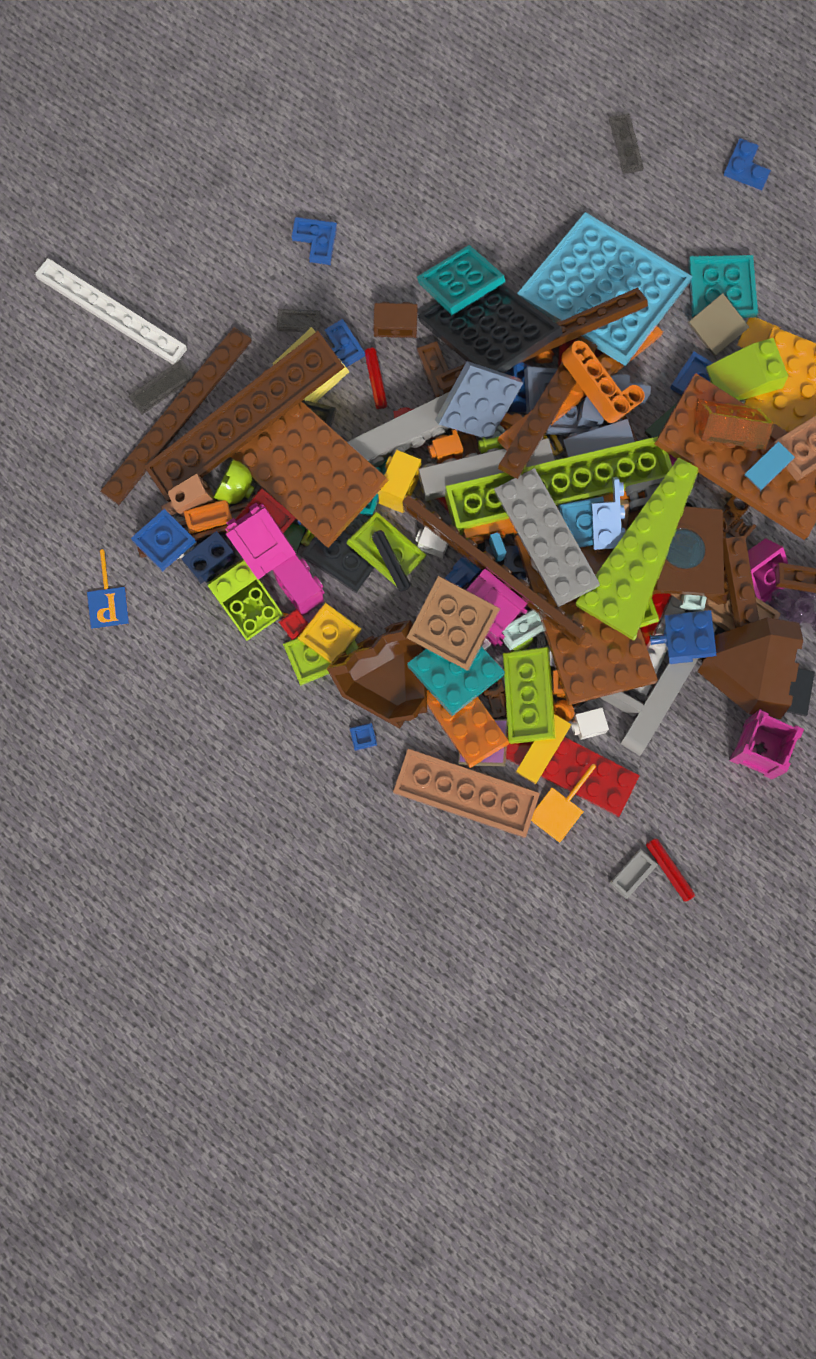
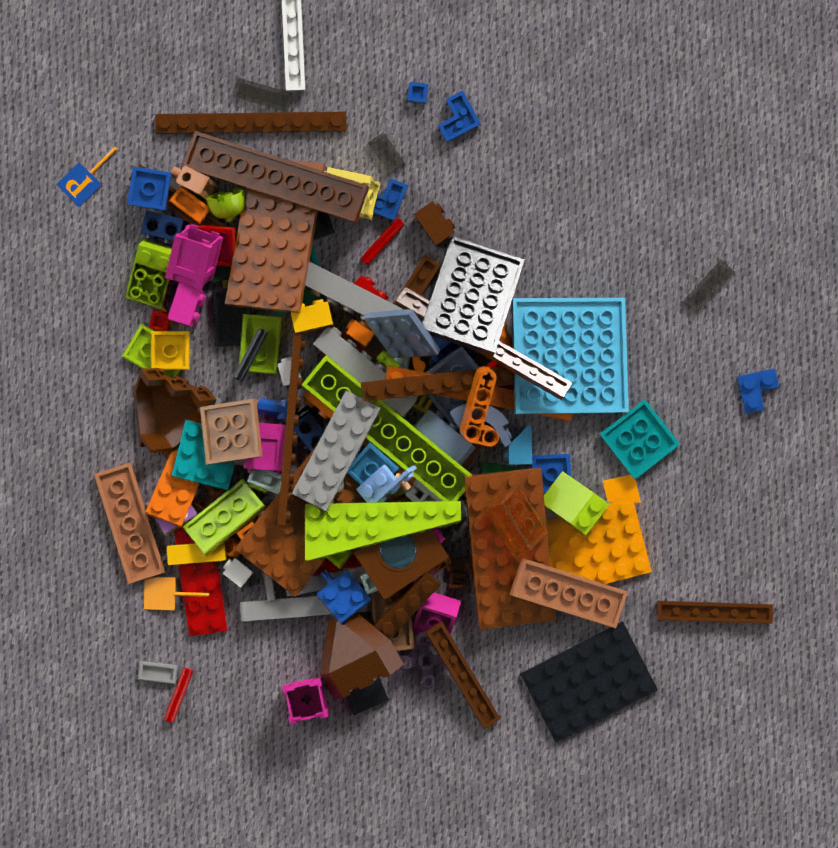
camera: 55 degrees right, 10 degrees up
(267, 256) = (417, 92): none -> blue plate
(363, 736) = (118, 425): blue tile -> none
(461, 279) = (499, 247): teal plate -> none
(497, 547) = (311, 421): dark azure tile -> none
(662, 388) = (520, 449): none -> dark azure slope
(718, 324) = (603, 457): dark tan tile -> none
(769, 466) = (503, 568): dark azure tile -> none

